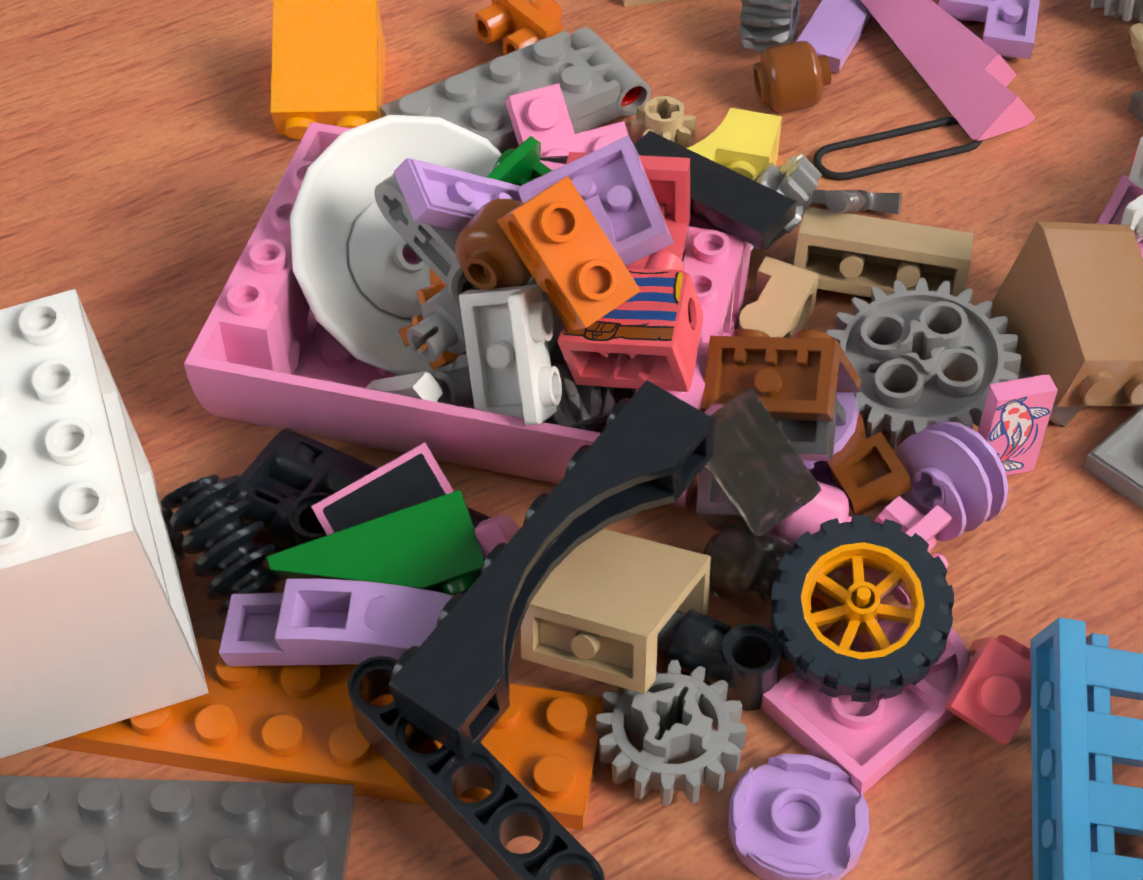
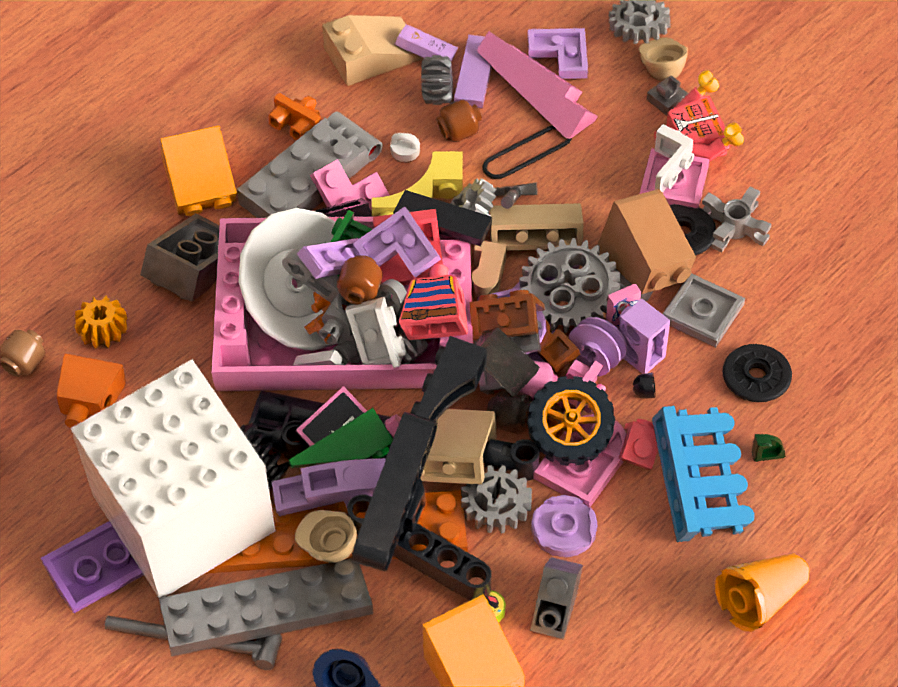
camera: 15 degrees left, 5 degrees up
(68, 259) = (100, 322): none -> light orange gear
(228, 187) = (184, 258): none -> flat silver slope
(296, 727) = (327, 535): none -> tan hat
(430, 666) = (394, 491): none -> black beam
(569, 255) = (398, 282): orange brick -> none
(666, 118) = (397, 169): tan gear -> none
(695, 95) = (405, 147): none -> white tile
(1028, 577) = (645, 385): none -> black hinge
(1049, 477) = (645, 335): none -> lavender brick

